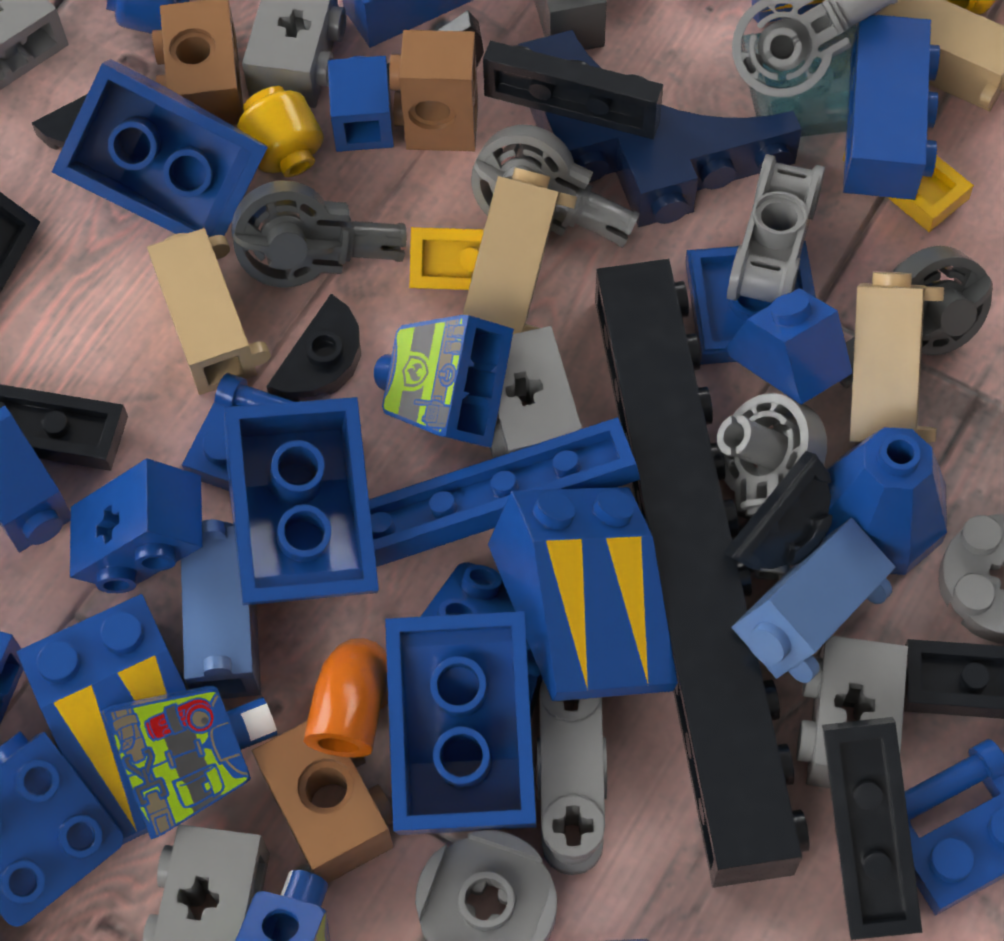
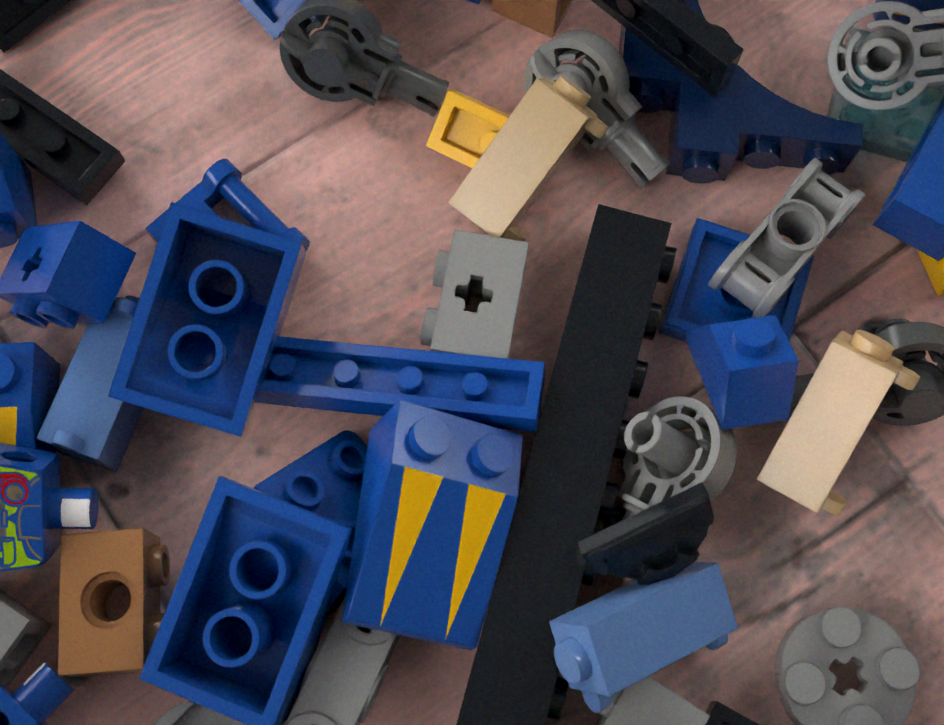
camera: 20 degrees right, 10 degrees up
(204, 309) = (231, 88): tan brick -> none
(322, 356) = (319, 178): black plate -> none
(348, 700) = (160, 528): orange cylinder -> none
(447, 376) = (406, 256): blue torso -> none
(893, 494) = (766, 551): blue cone -> none

